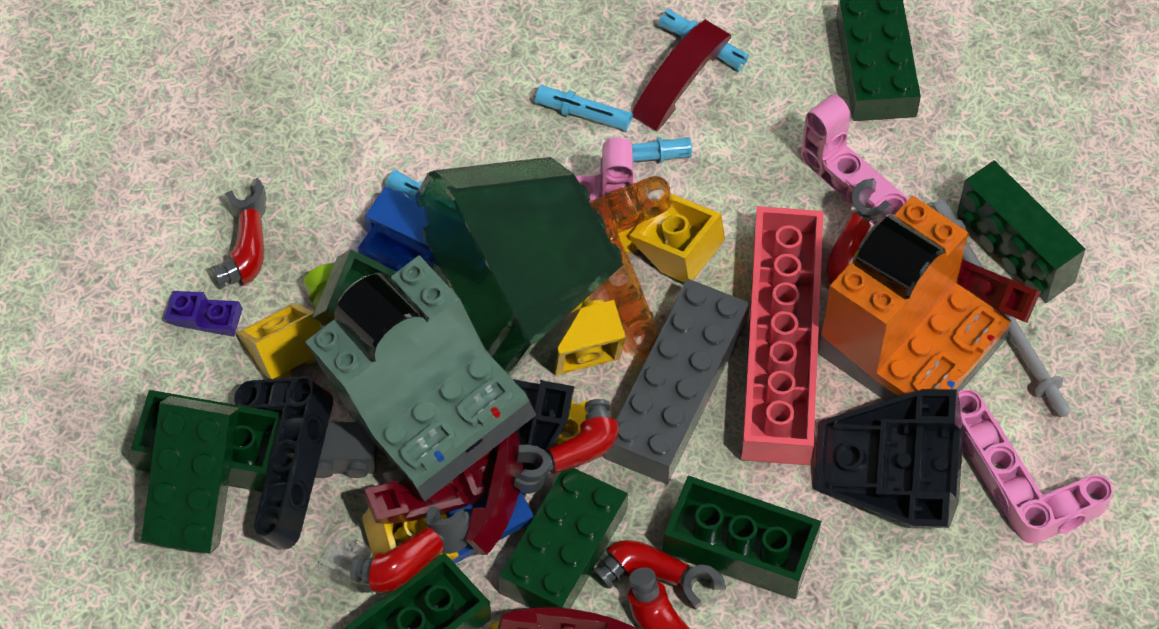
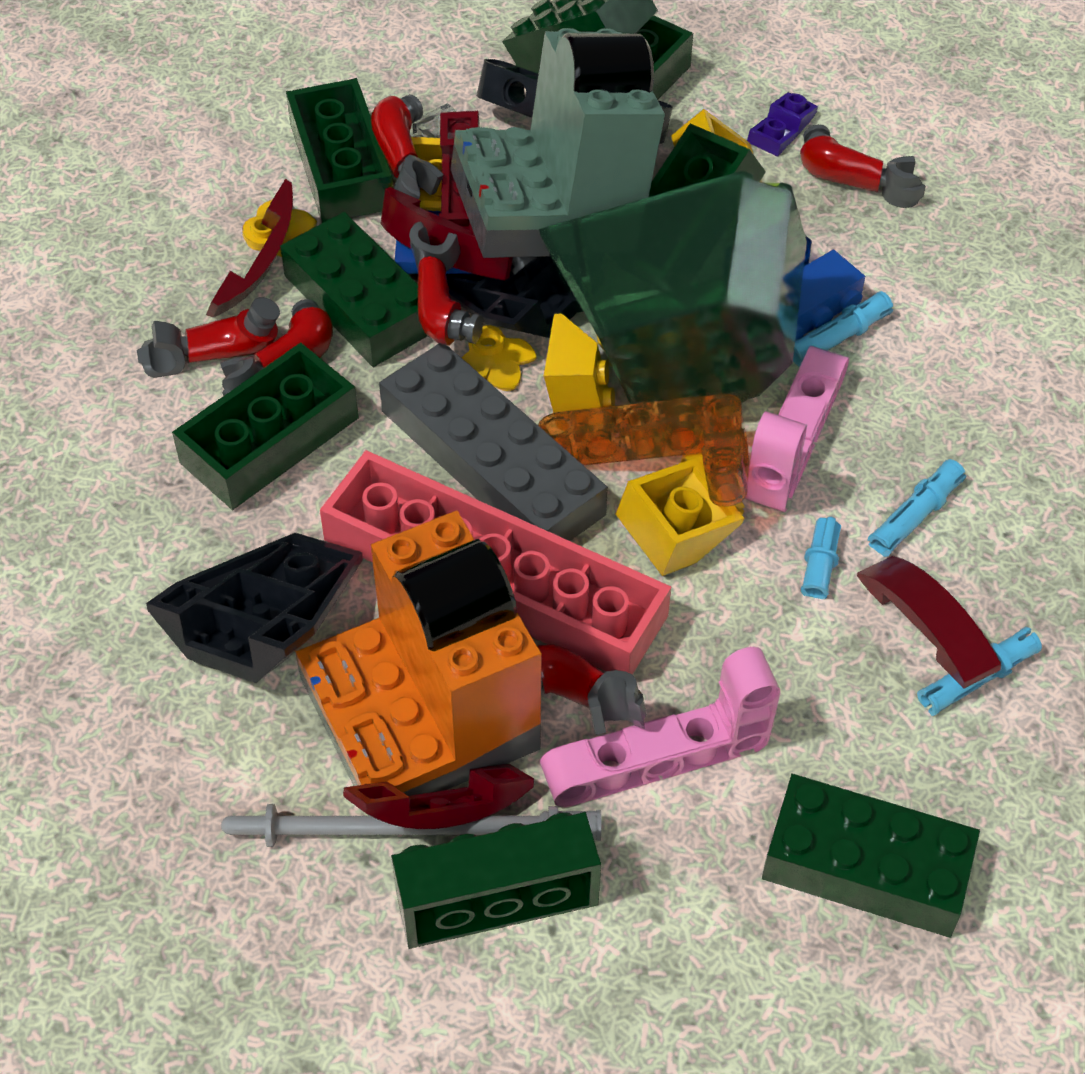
camera: 115 degrees right, 5 degrees down
(1014, 487) = (168, 714): bright pink beam -> none

